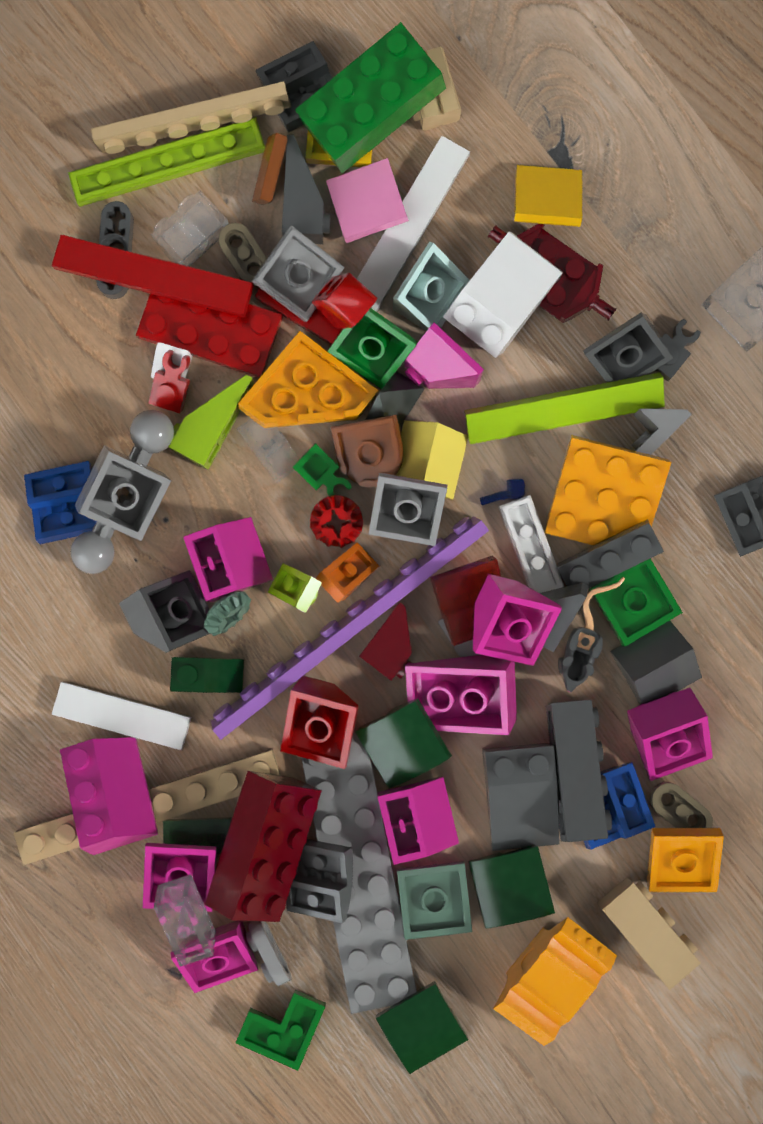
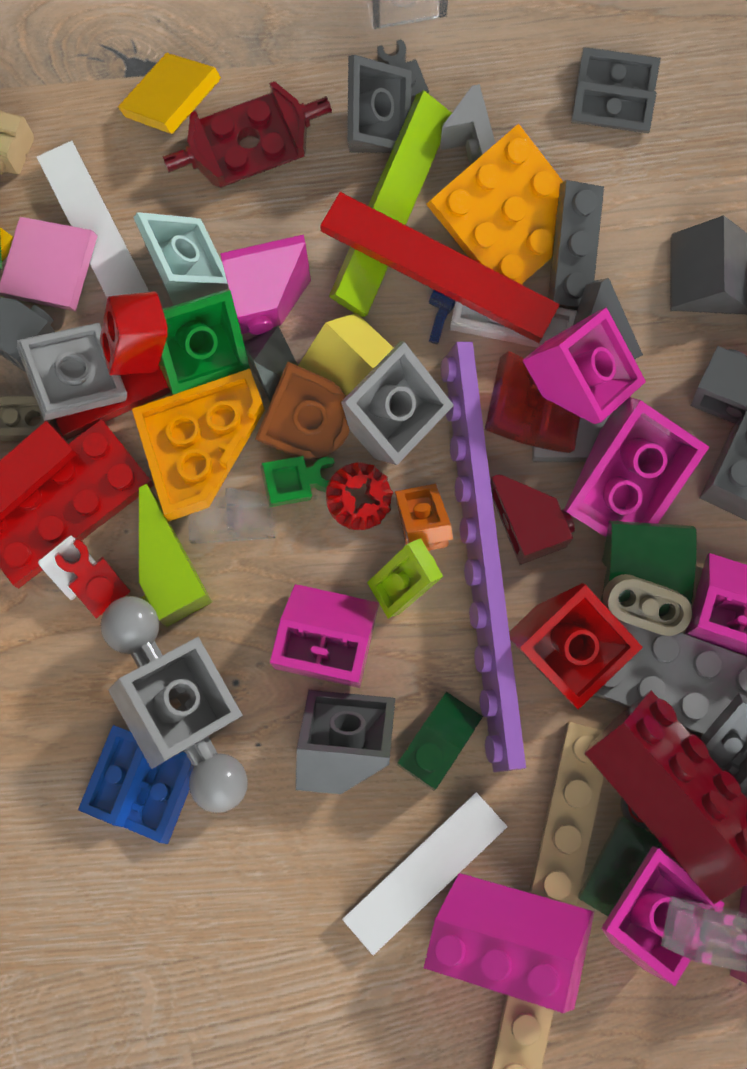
camera: 55 degrees left, 10 degrees down
(226, 612) = (384, 672): sand green gear -> none
(374, 753) = (644, 605): none -> dark tan plate
(502, 295) = (238, 184): white slope -> none
(530, 473) = (439, 267): none -> red tile
(582, 646) = (657, 330): dark grey animal -> none
(638, 603) = (638, 251): green plate -> none

